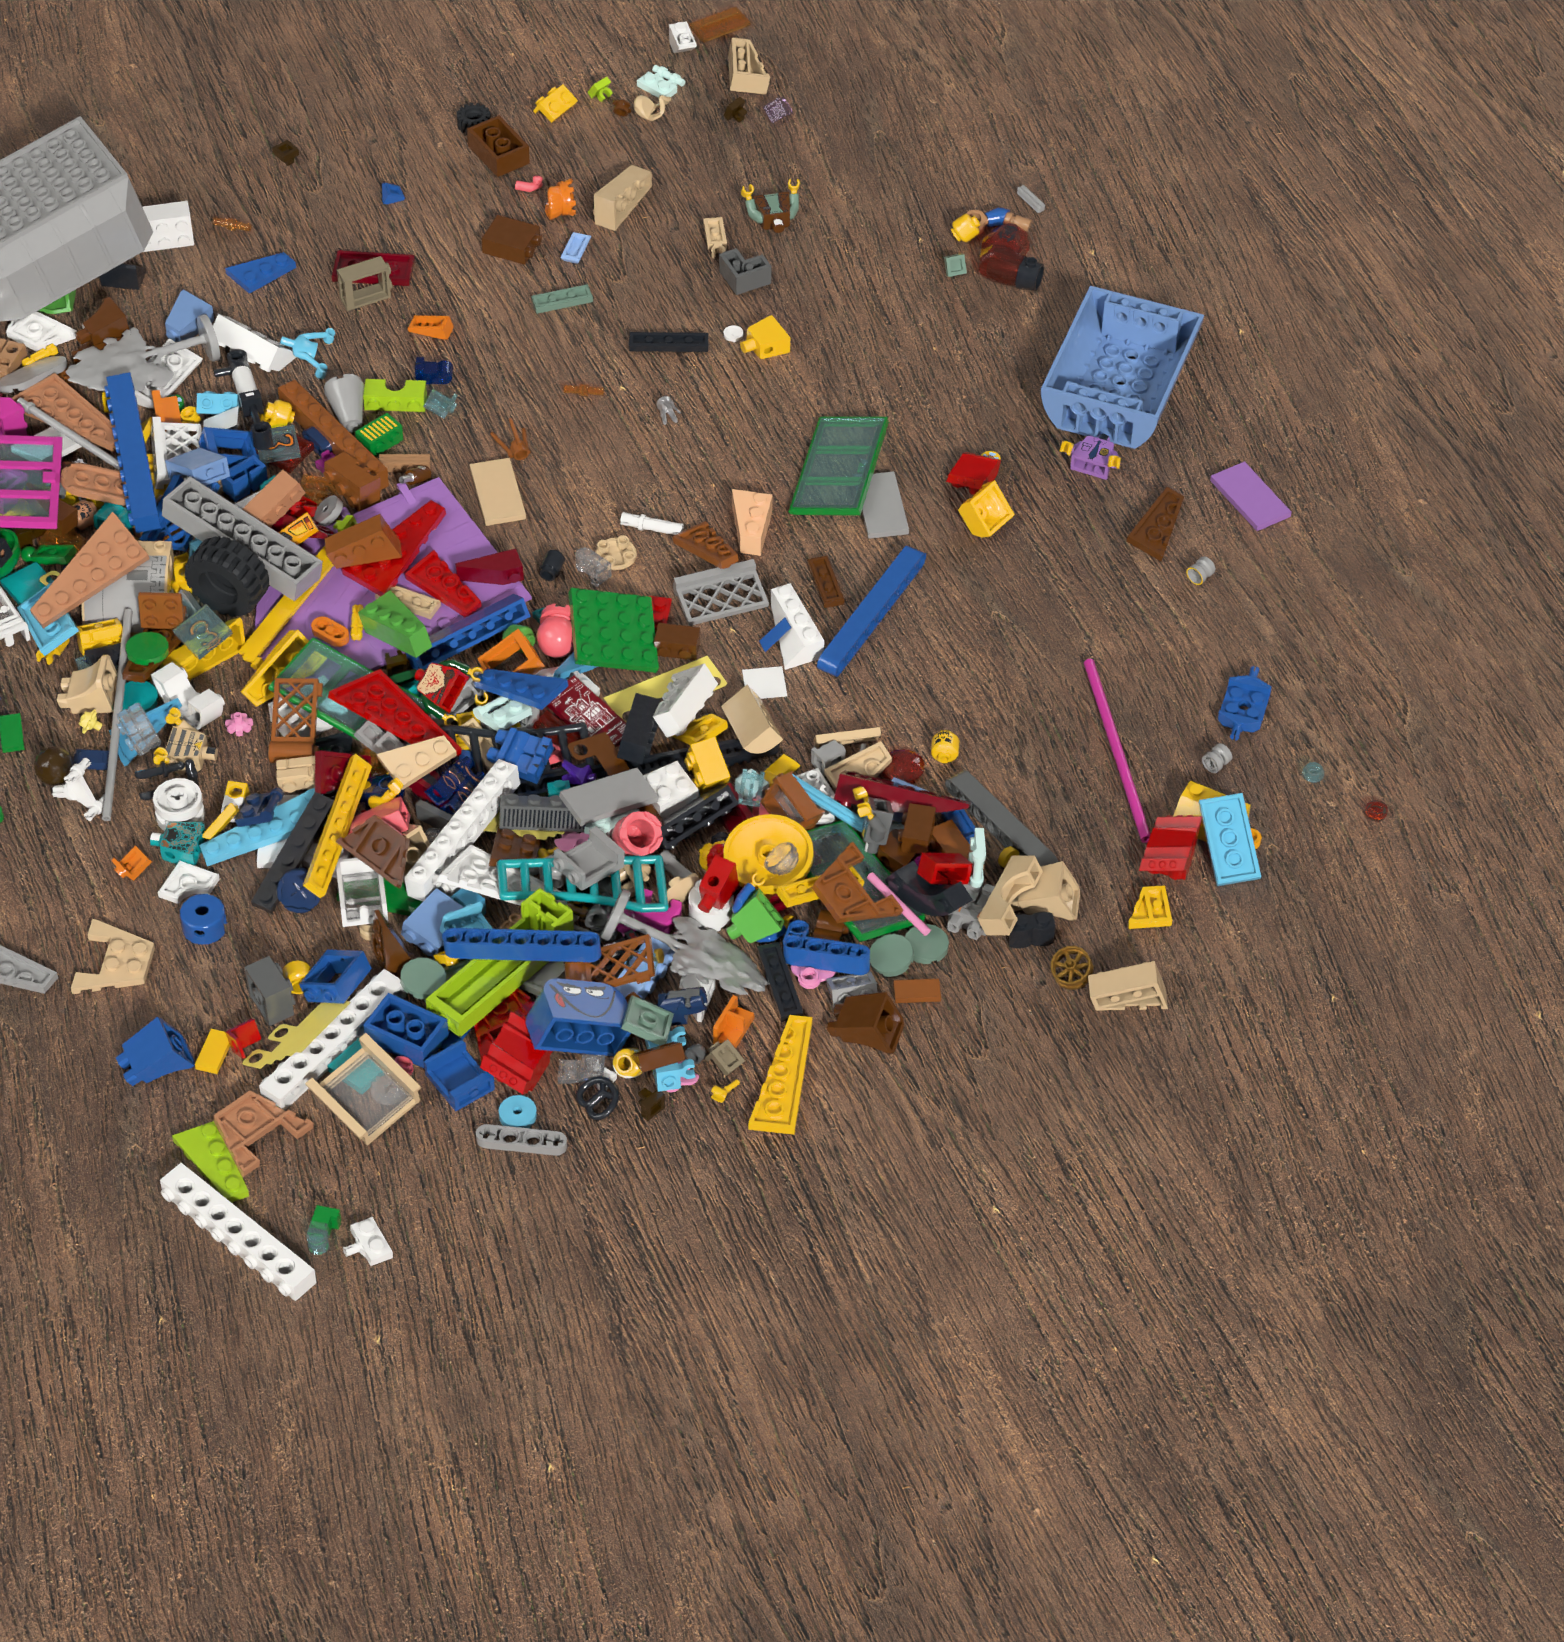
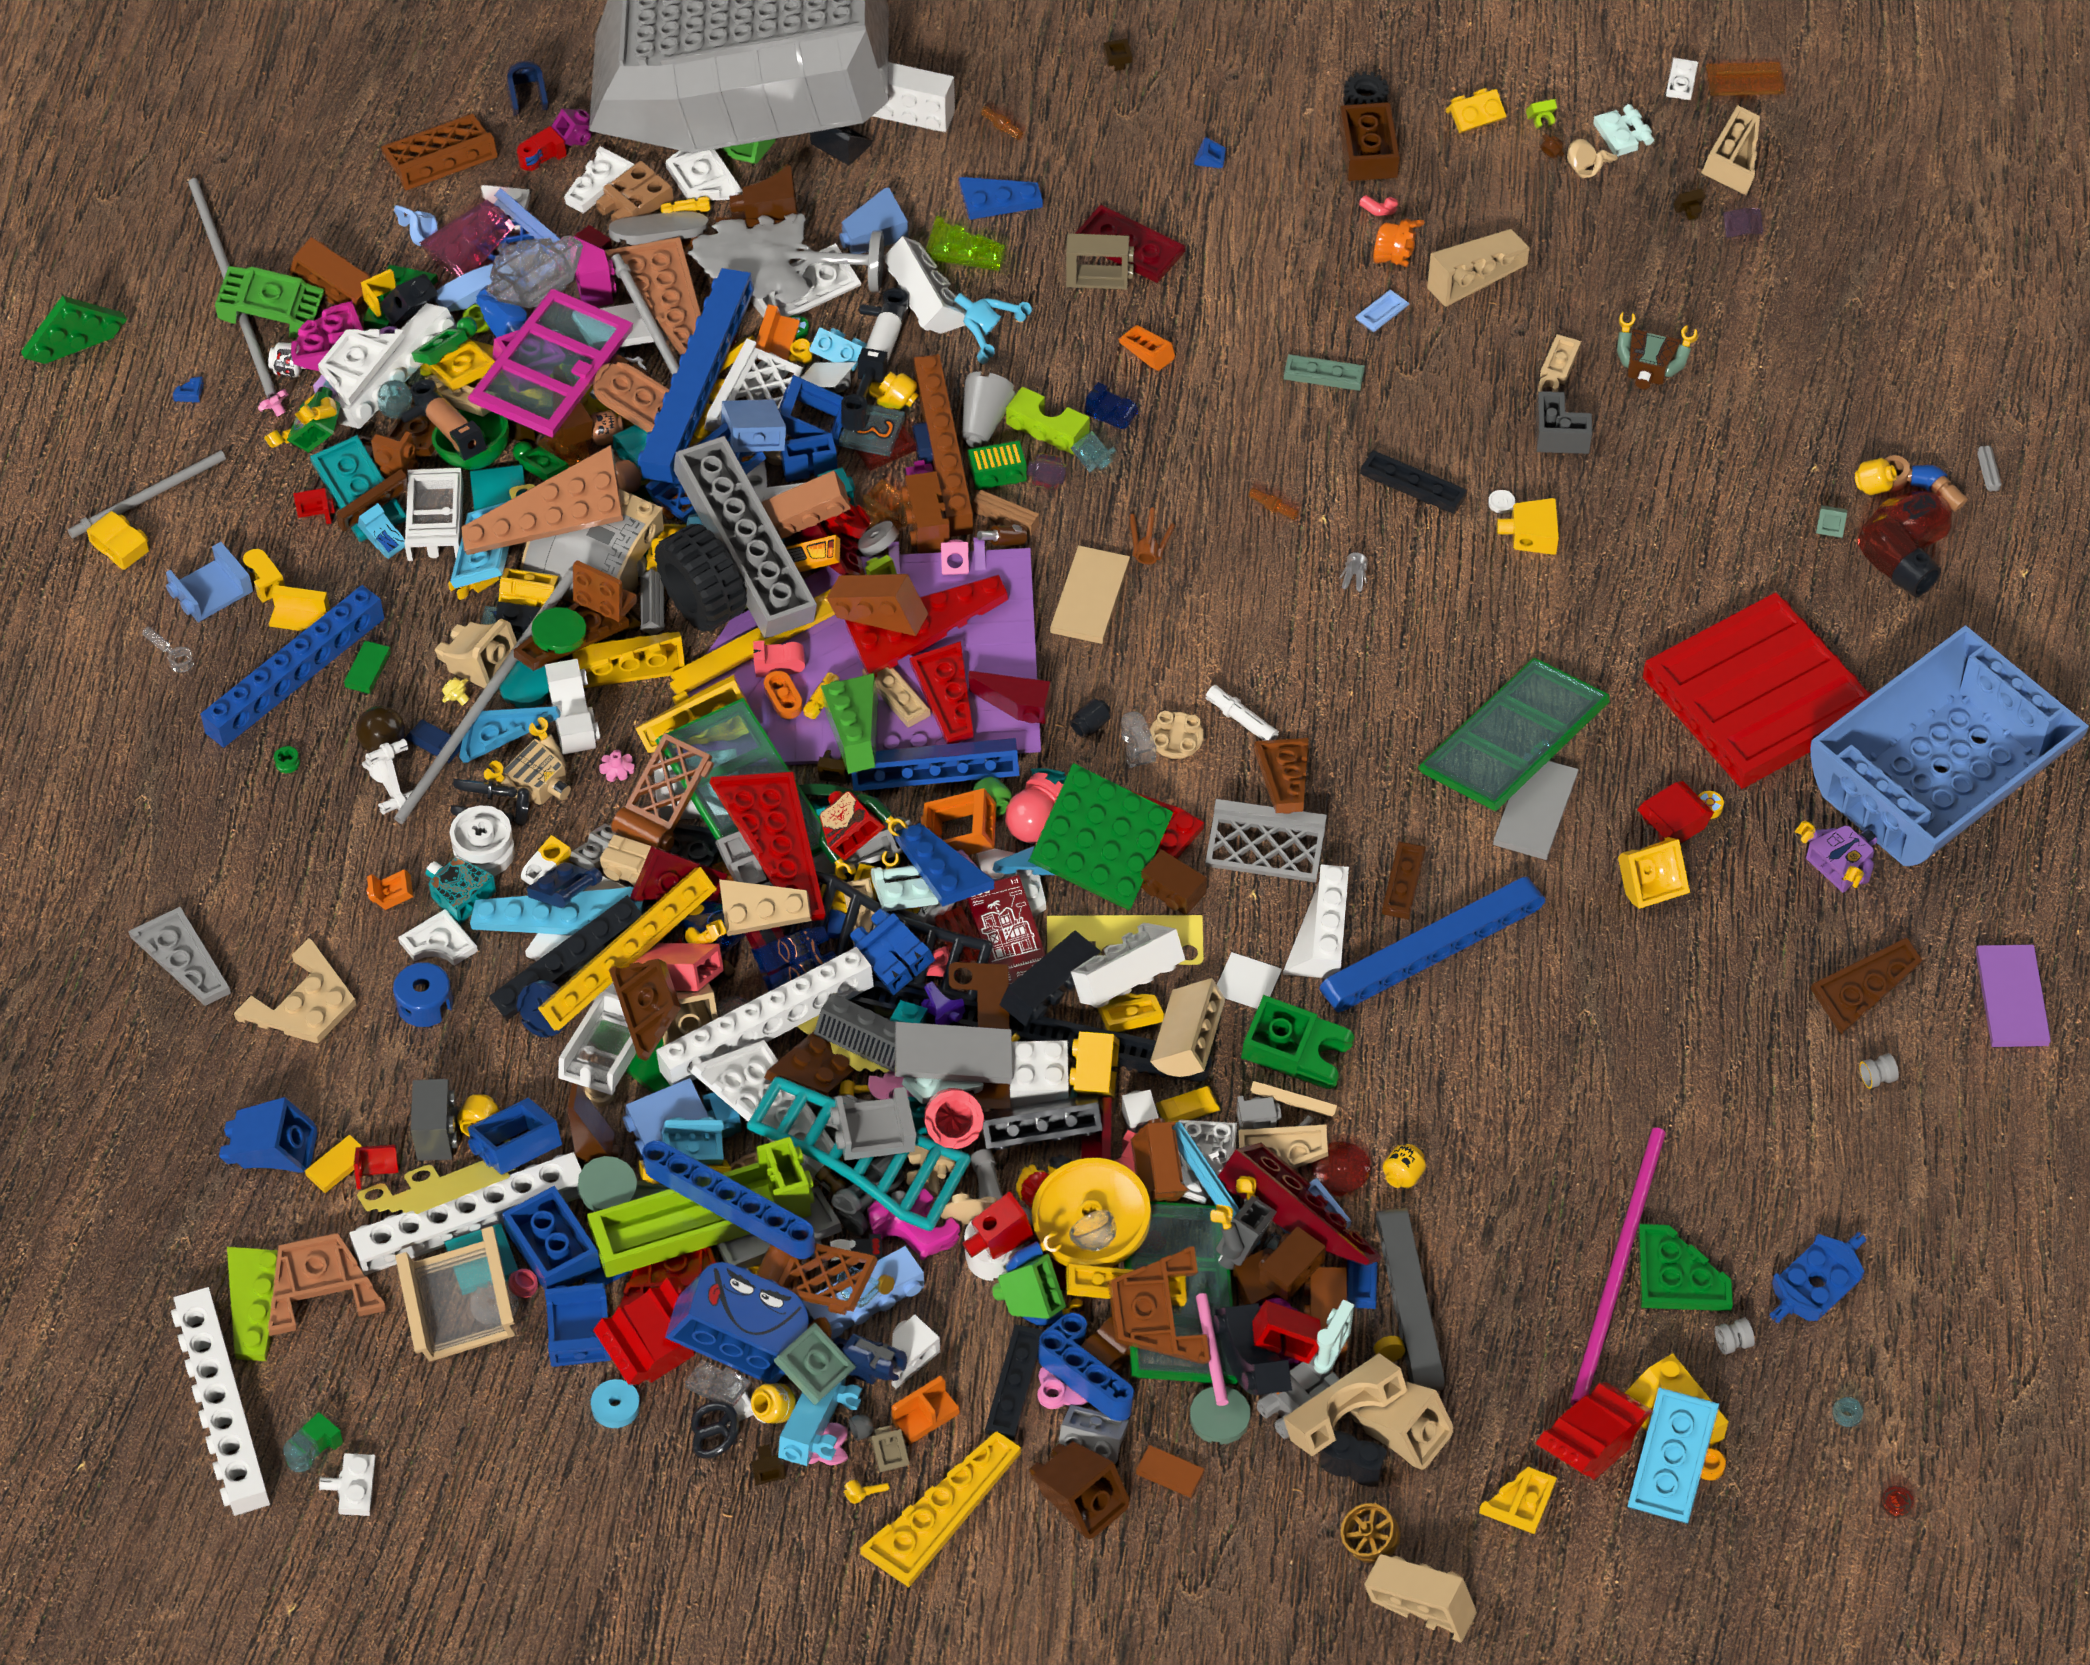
camera: 30 degrees right, 5 degrees up
(138, 729) = (492, 726): clear brick -> none
(202, 632) = (631, 636): clear light blue tile -> none
(221, 821) = (513, 882): yellow tile -> none
(256, 312) = (956, 246): none -> clear neon green wing
(264, 778) = (589, 854): none -> light grey slope
(307, 611) = (778, 657): none -> coral leg
(386, 495) = (955, 547): none -> bright pink bracket
(417, 426) = (1046, 471): none -> head
(432, 815) = (752, 977): dark grey tile -> none
(511, 239) = (1309, 271): reddish brown brick -> none
(522, 1136) = (595, 1442): light grey beam -> none
(659, 1056) = (797, 1416): reddish brown slope -> none
(704, 954) = (946, 1313): light grey plant -> none
(752, 519) = (1362, 761): light nougat wedge -> none
(752, 776) = (1130, 1098): clear light blue tile -> none
(775, 634) = (1294, 924): blue sticker -> none
(824, 703) = (1291, 1042): none -> green brick
(891, 955) = (1166, 1410): sand green tile -> none
(975, 380) = (1755, 688): none -> red panel
(1157, 738) = (1678, 1274): none -> green plate

